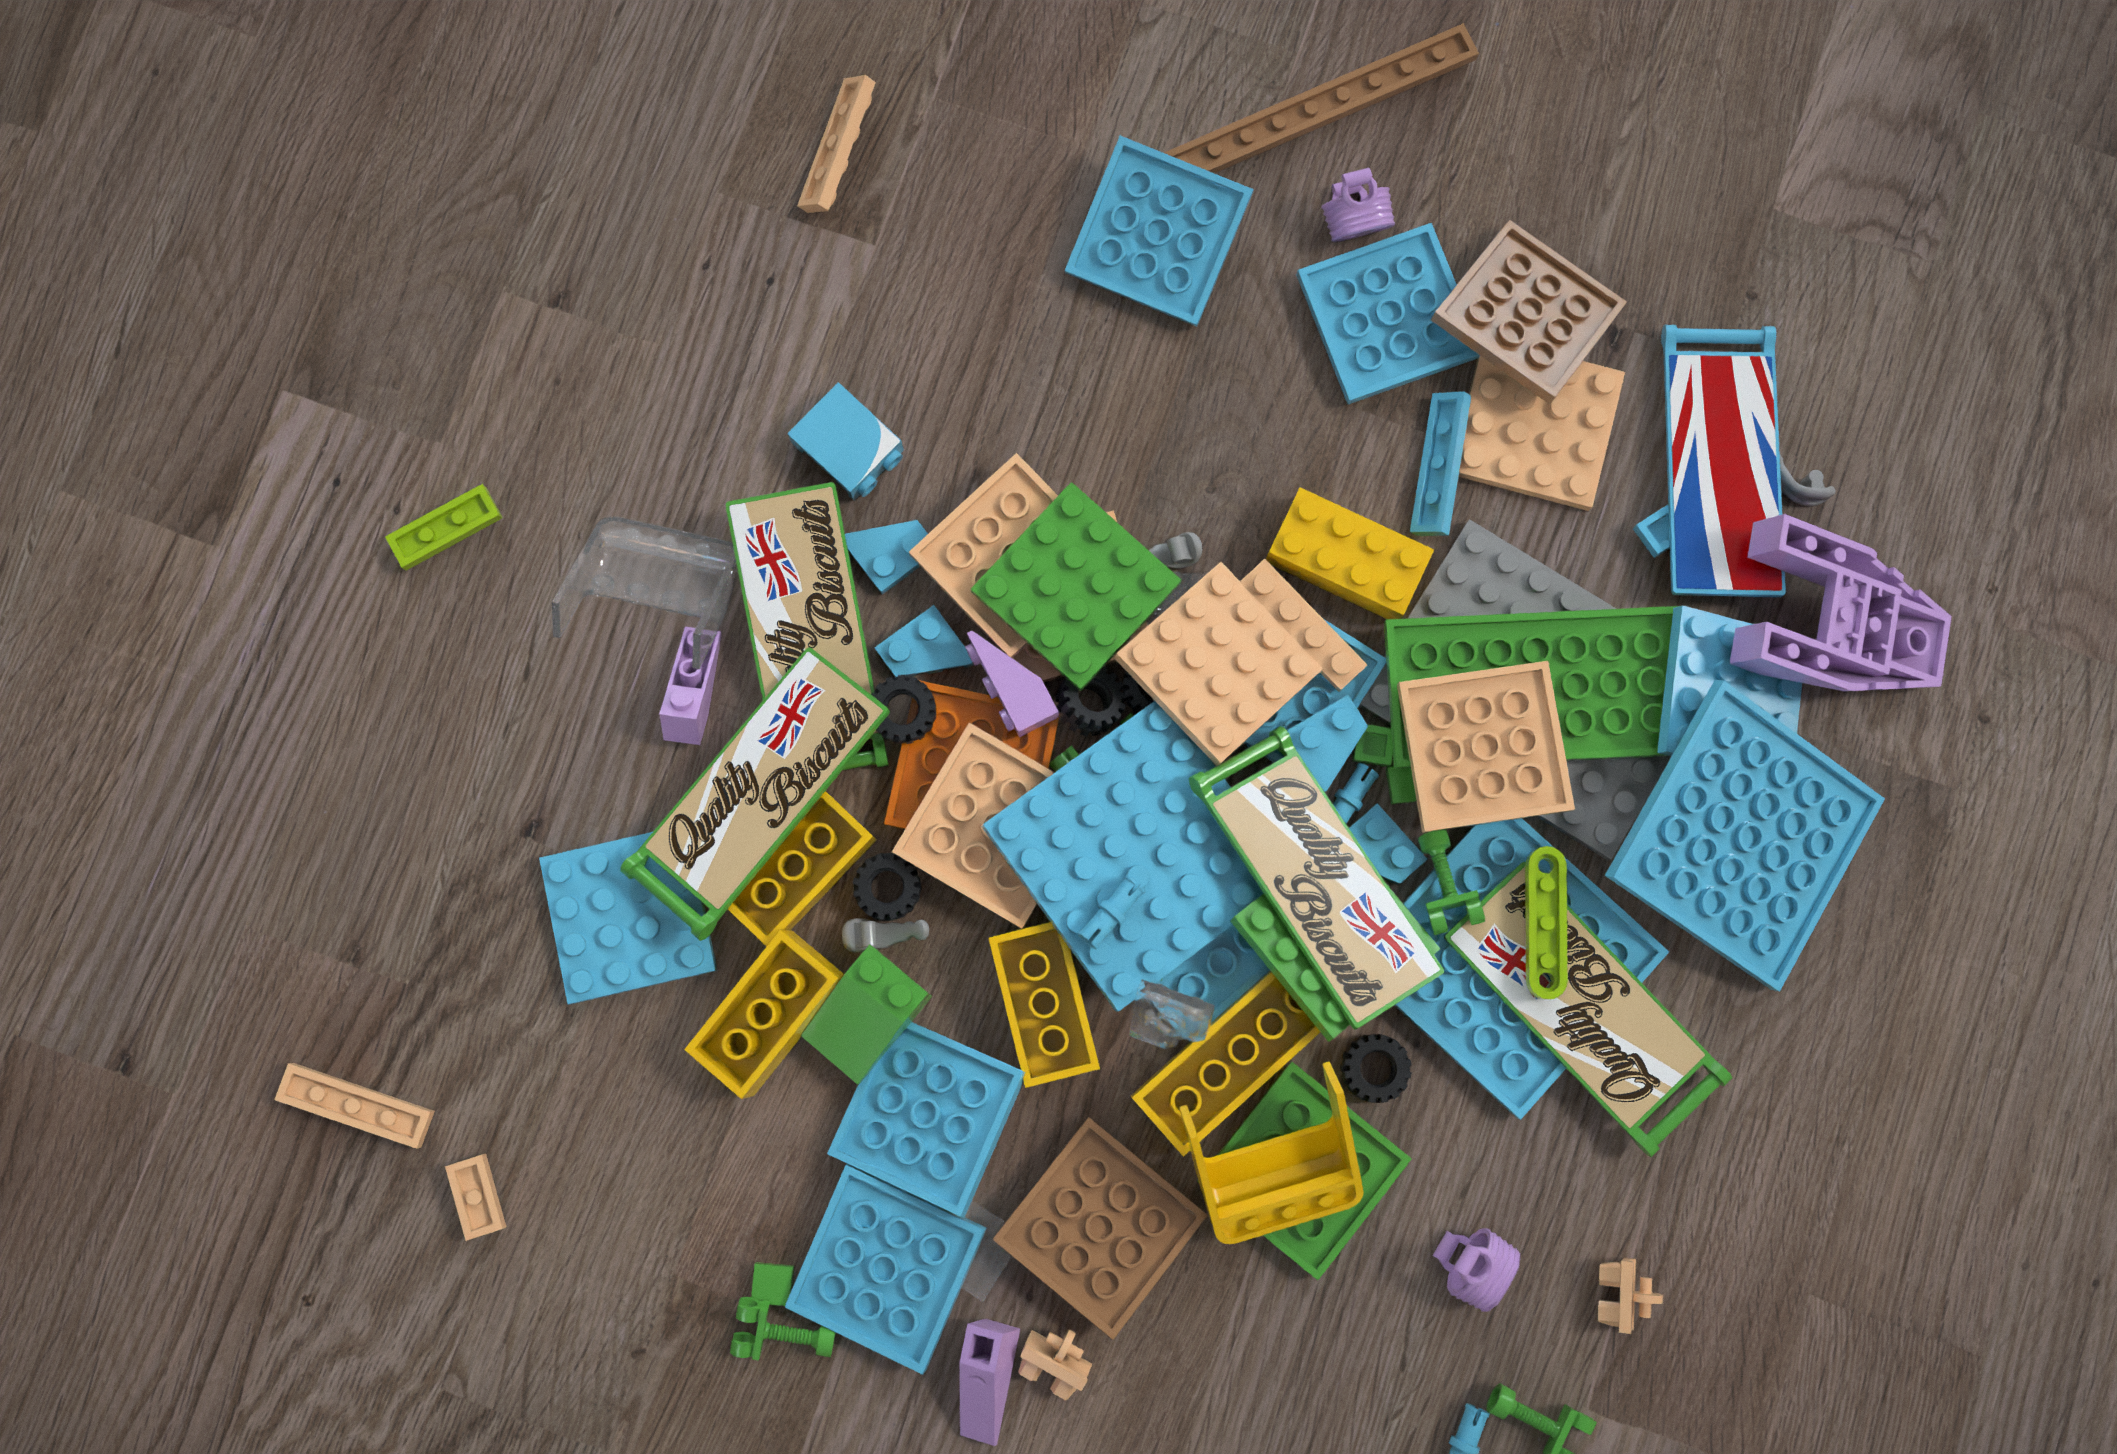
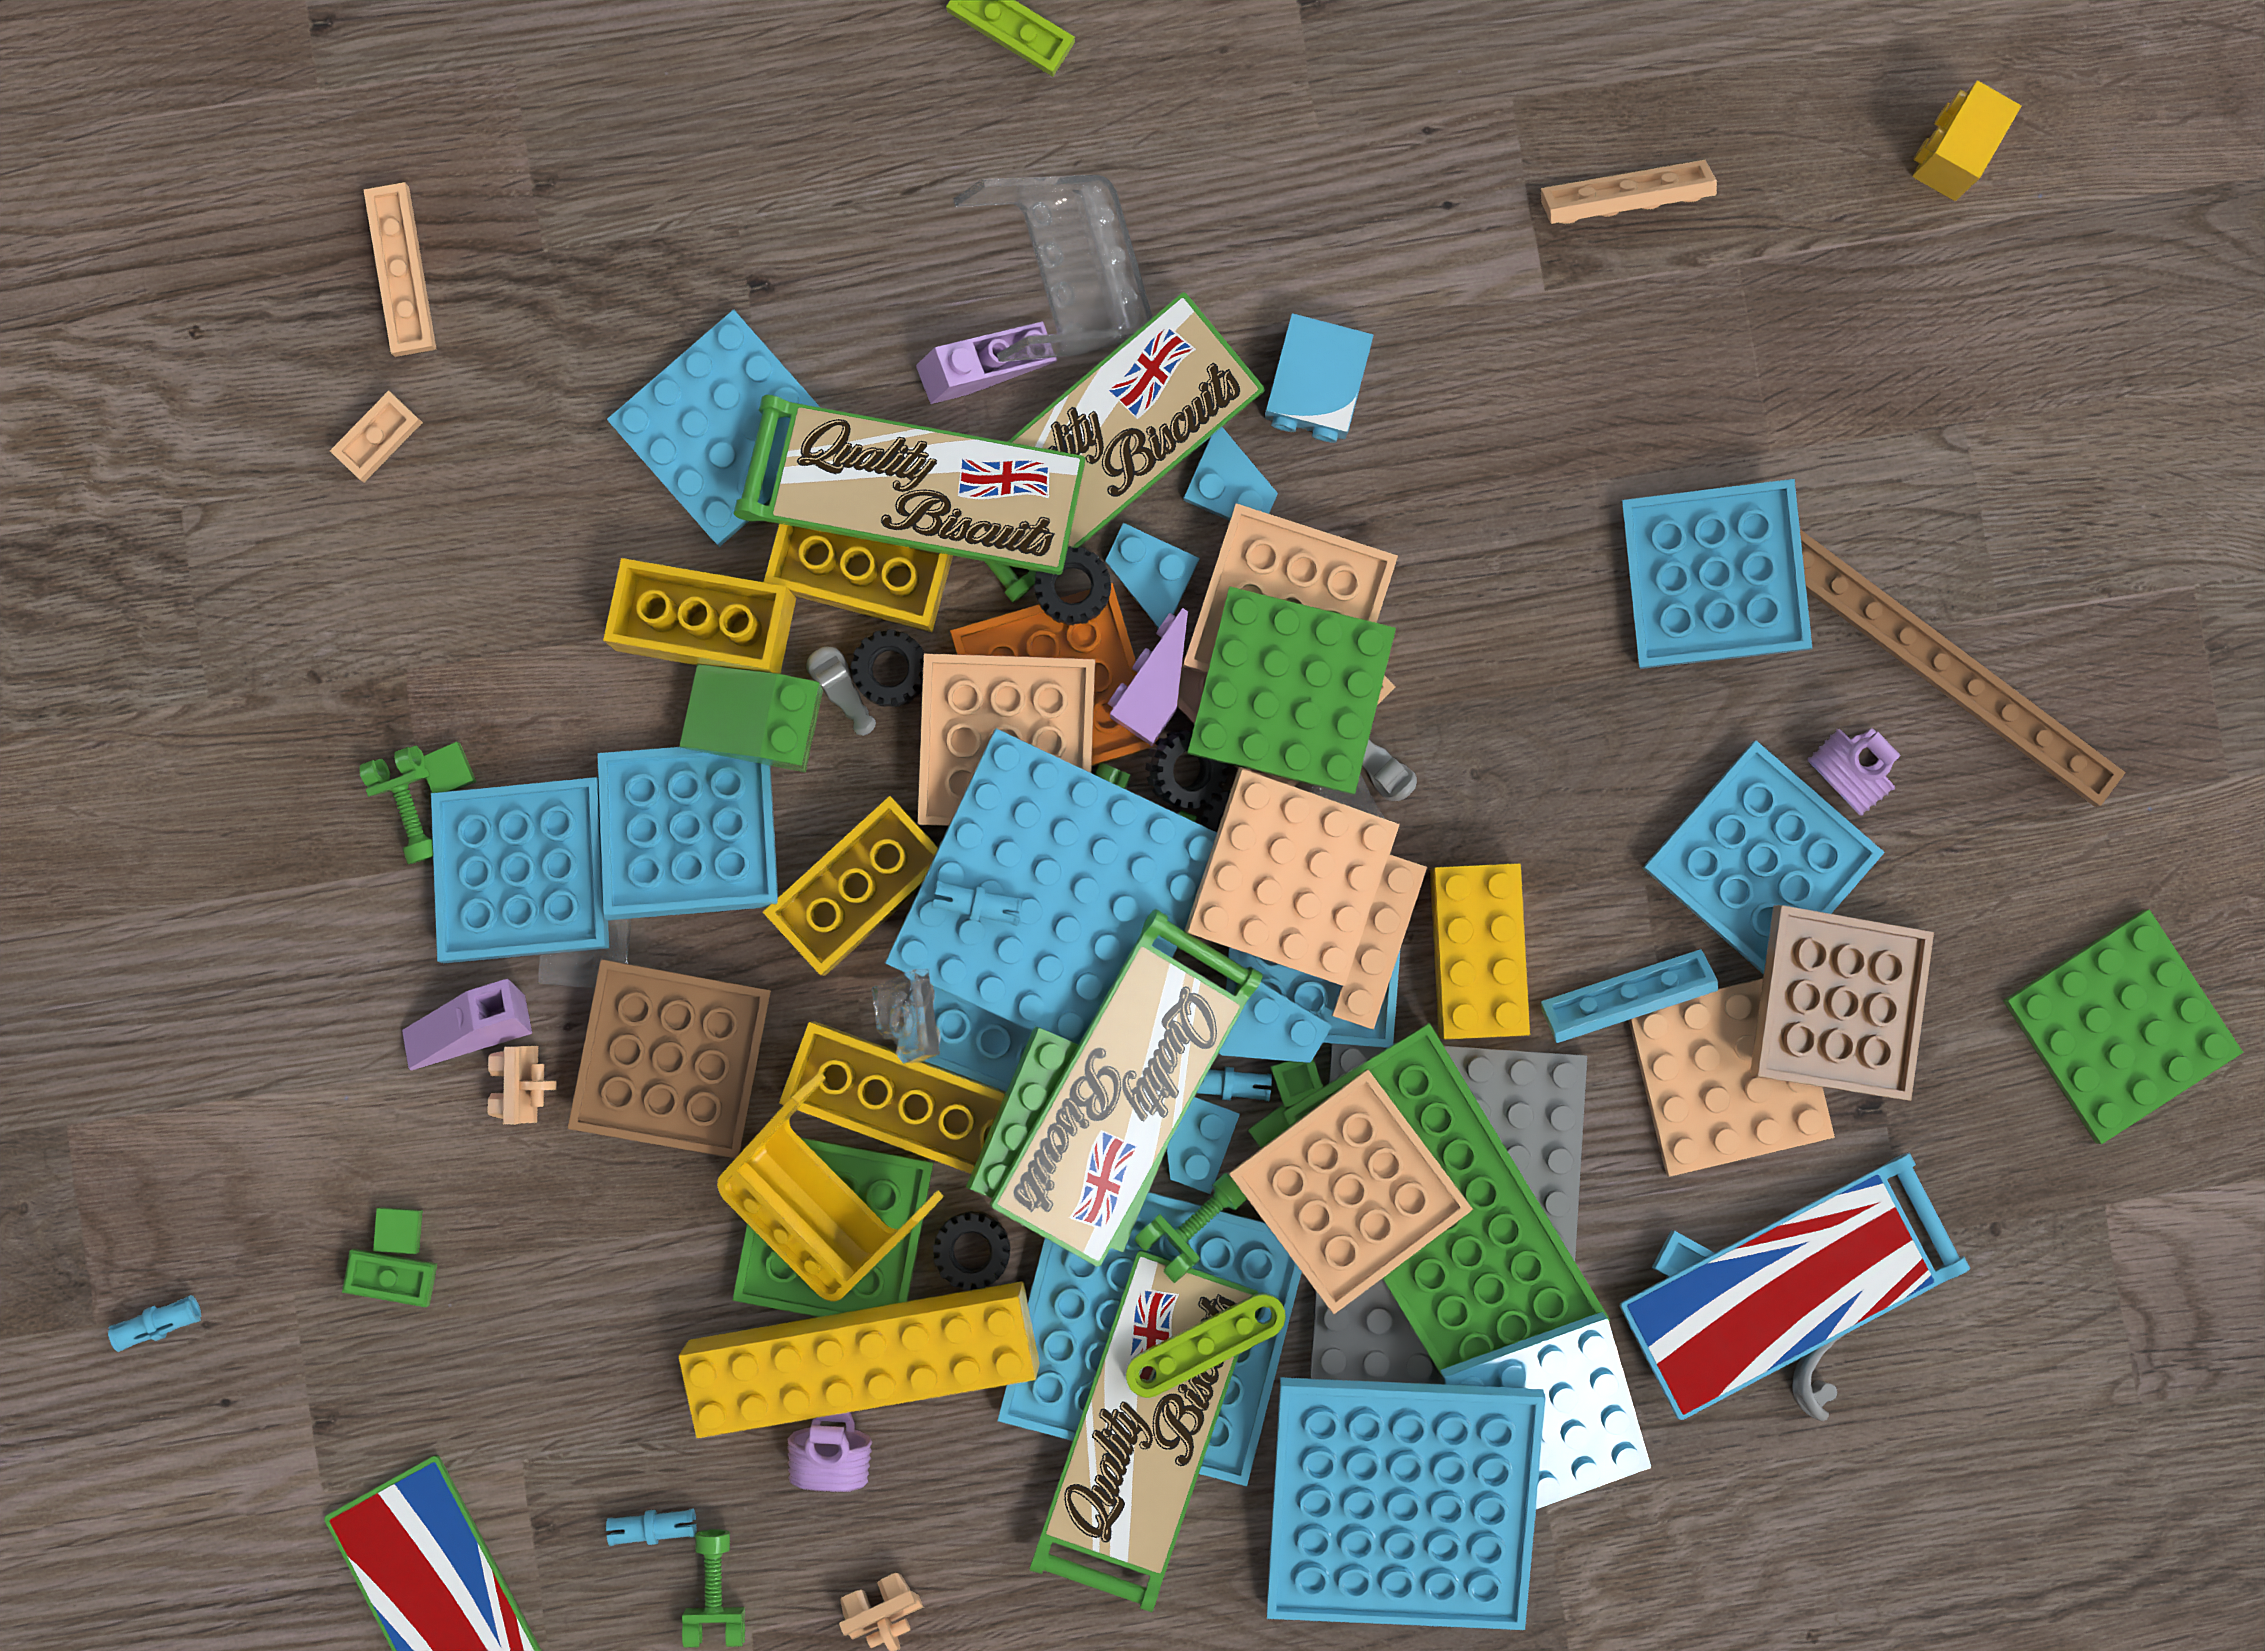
camera: 60 degrees right, 5 degrees up
(1418, 1204) = (859, 1360): none -> yellow brick
(1648, 126) = (2122, 1026): none -> bright green plate
(1870, 622) = (1698, 1524): lavender wedge -> none

